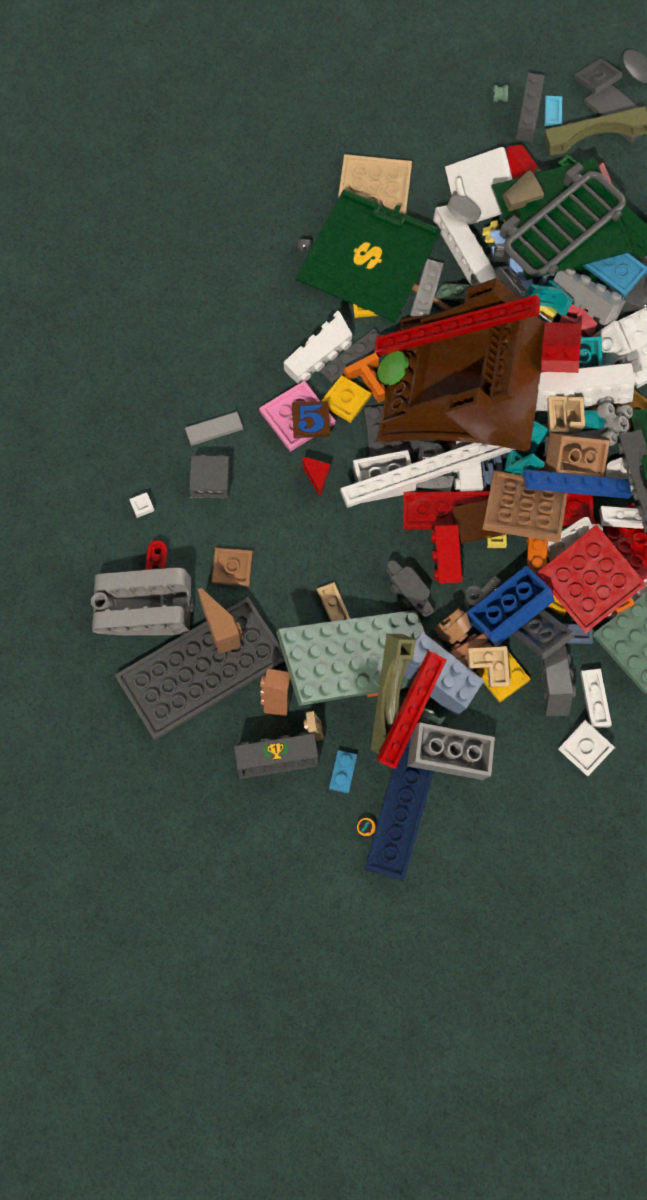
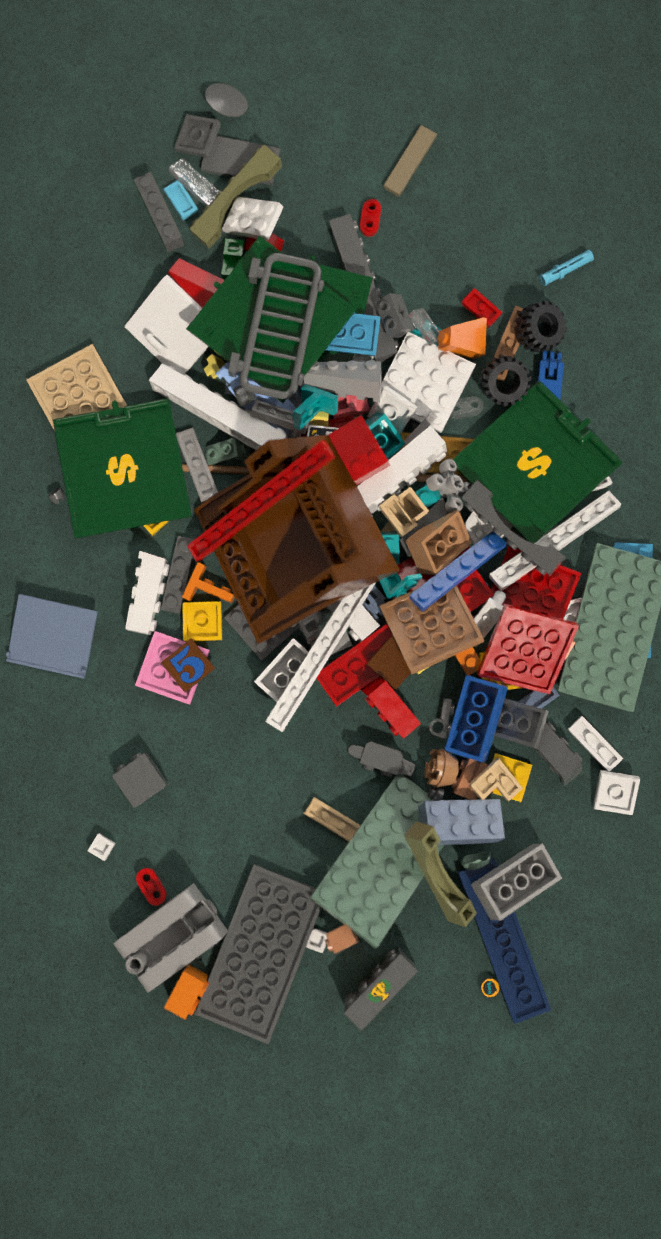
camera: 35 degrees left, 15 degrees up
(123, 649) = (185, 994): none -> orange brick
(213, 428) = (109, 730): light grey tile -> none
(221, 624) = (253, 914): medium nougat slope -> none
(224, 334) = (52, 636): none -> sand blue container
(232, 567) = (219, 845): medium nougat tile -> none
(252, 691) = (317, 940): none -> white tile
(314, 725) = (392, 941): tan plate -> none
(317, 473) = (230, 710): red slope -> none
(343, 771) = (438, 954): dark azure plate -> none
(392, 368) = (223, 566): bright green tile -> none
(411, 709) = (465, 877): red plate -> none
(464, 209) = (175, 365): light grey tile -> none
(500, 93) = (121, 215): sand green wheel -> none
(522, 192) = (221, 318): dark tan slope -> none
(572, 102) = (193, 181): none -> clear plate
(601, 148) = (252, 218): none -> white plate

